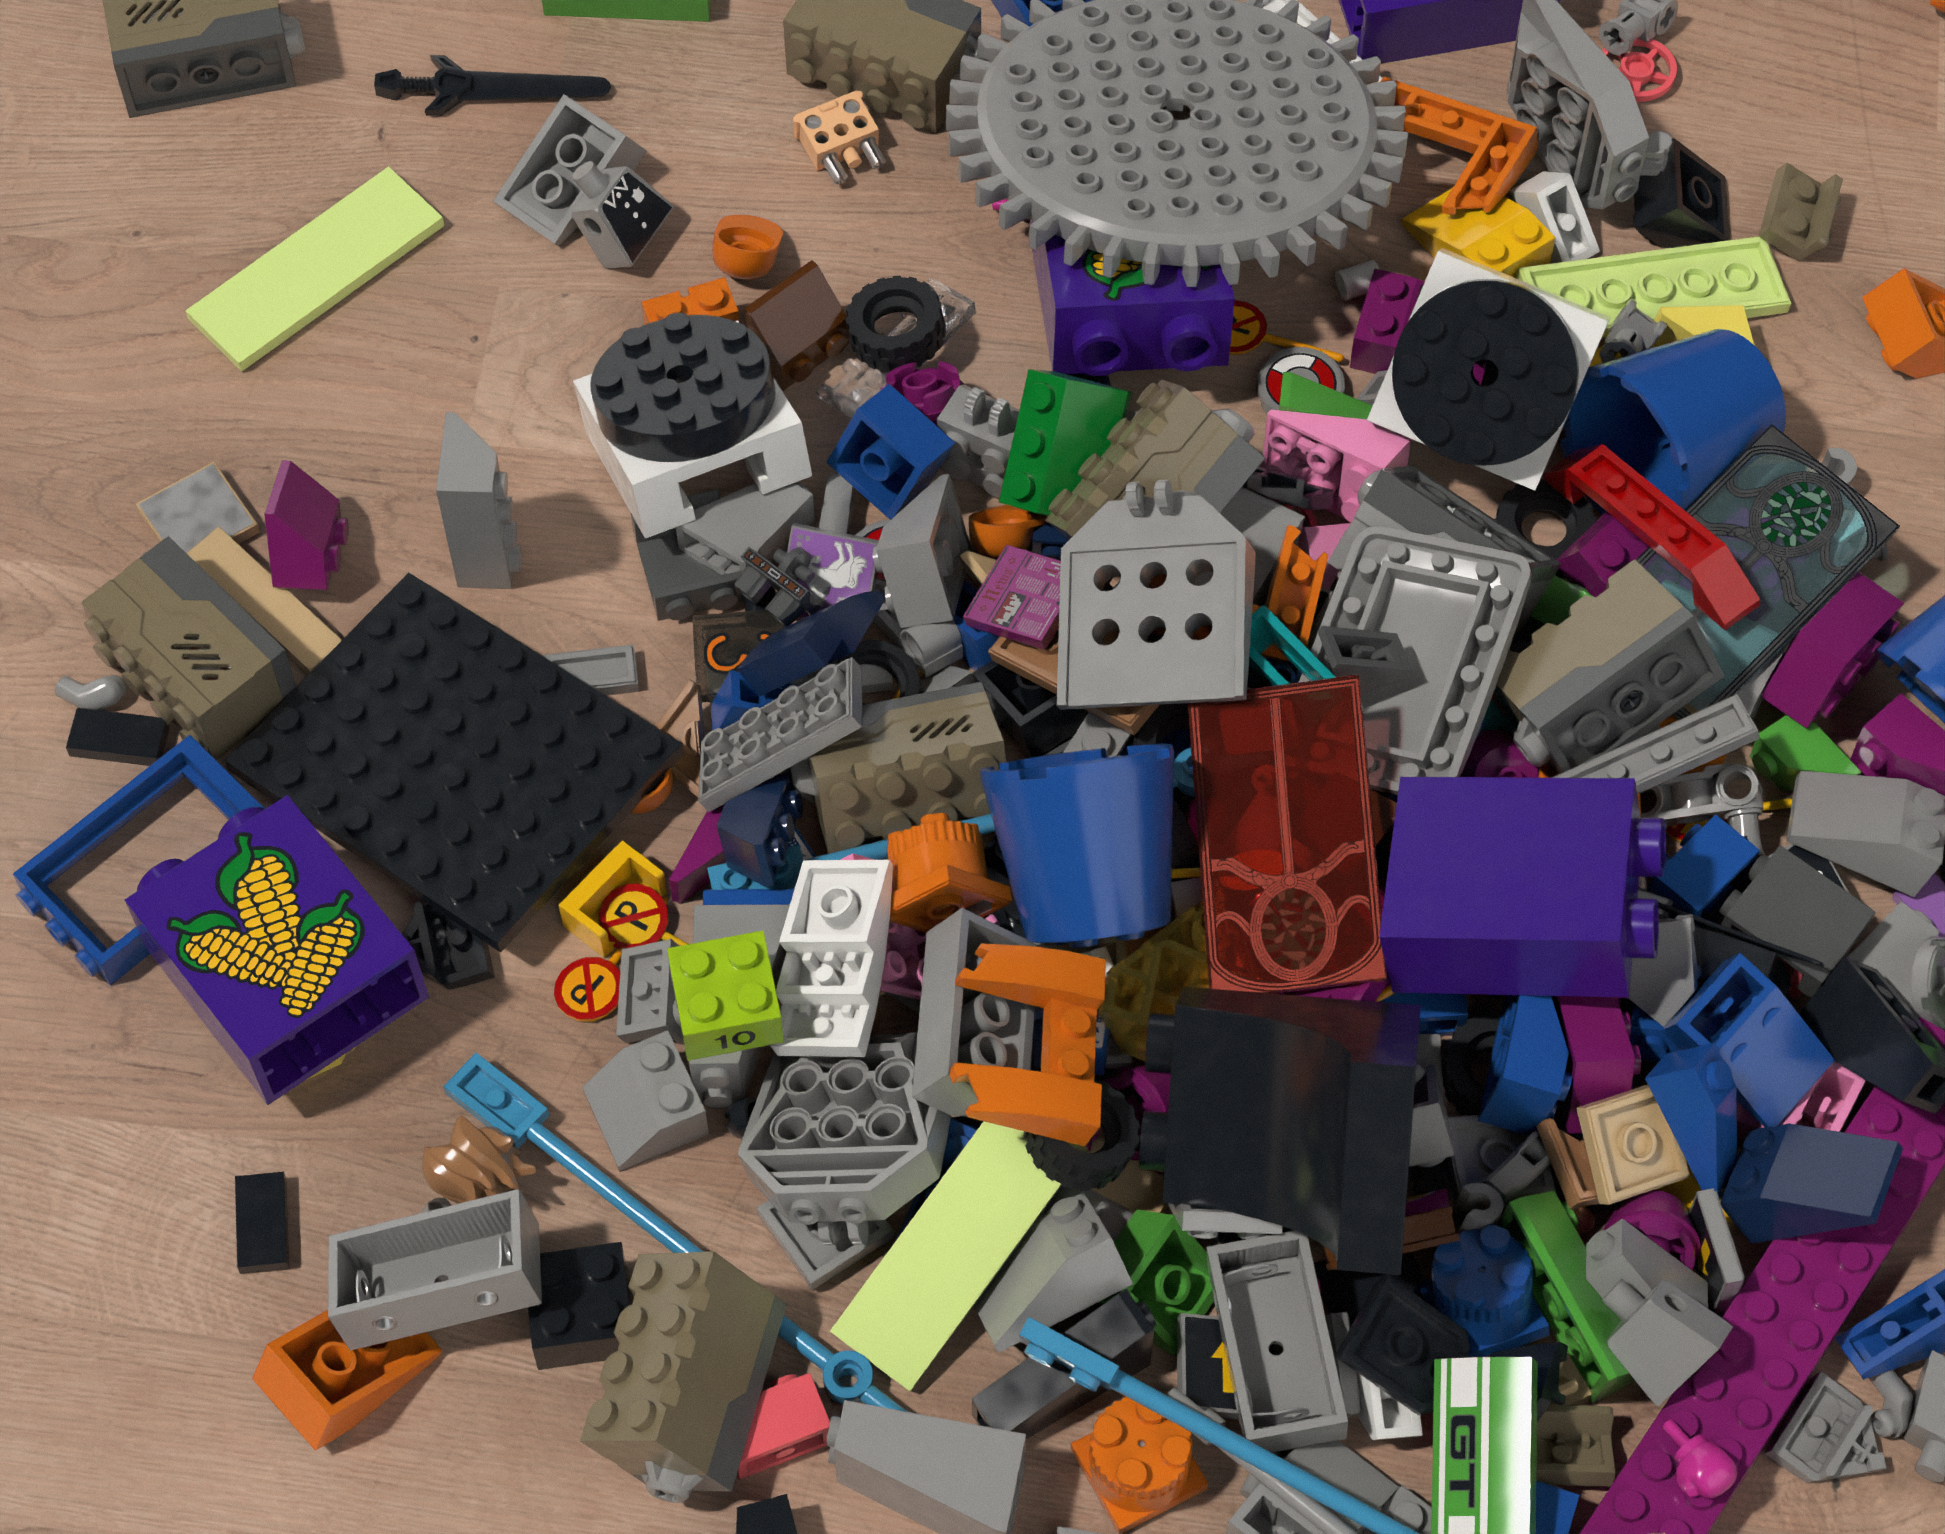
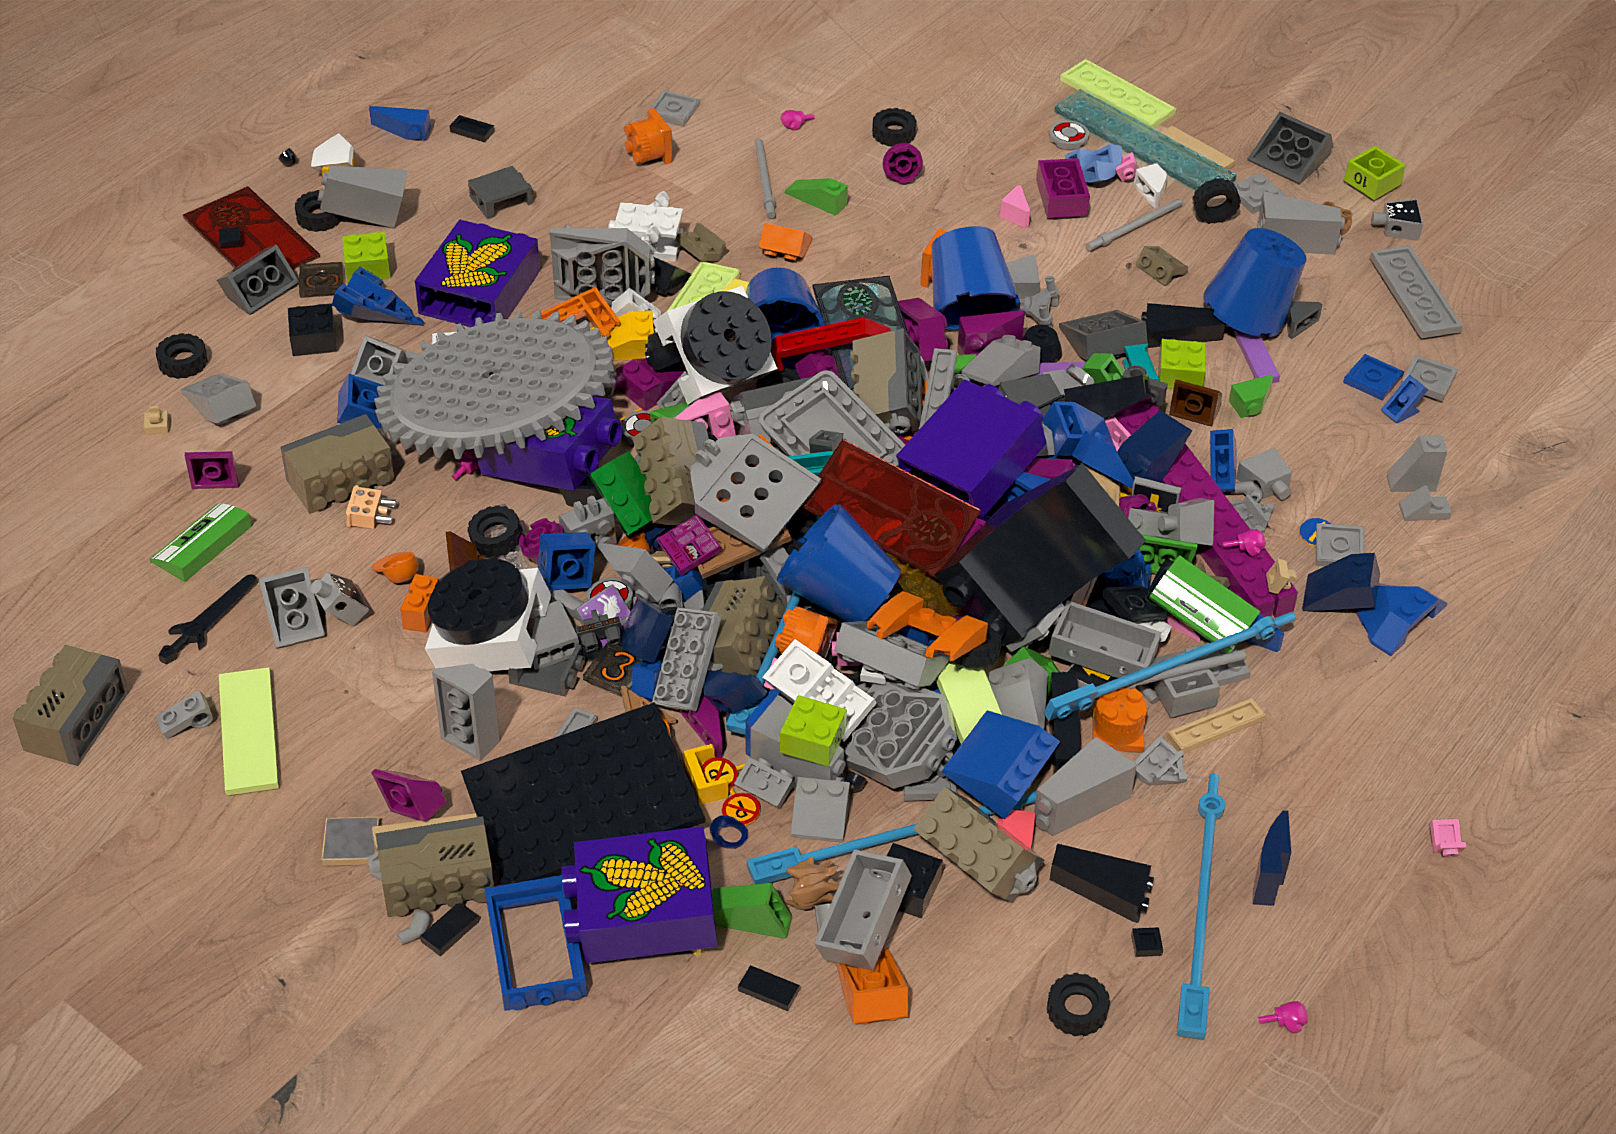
camera: 60 degrees left, 15 degrees down
(288, 176) = (190, 711): none -> light grey plate
(379, 1116) = (751, 909): none -> bright green slope
(525, 972) = (728, 821): none -> clear blue piece
(886, 1309) = (1000, 760): none -> blue slope
(1758, 115) = (653, 224): none -> white torso

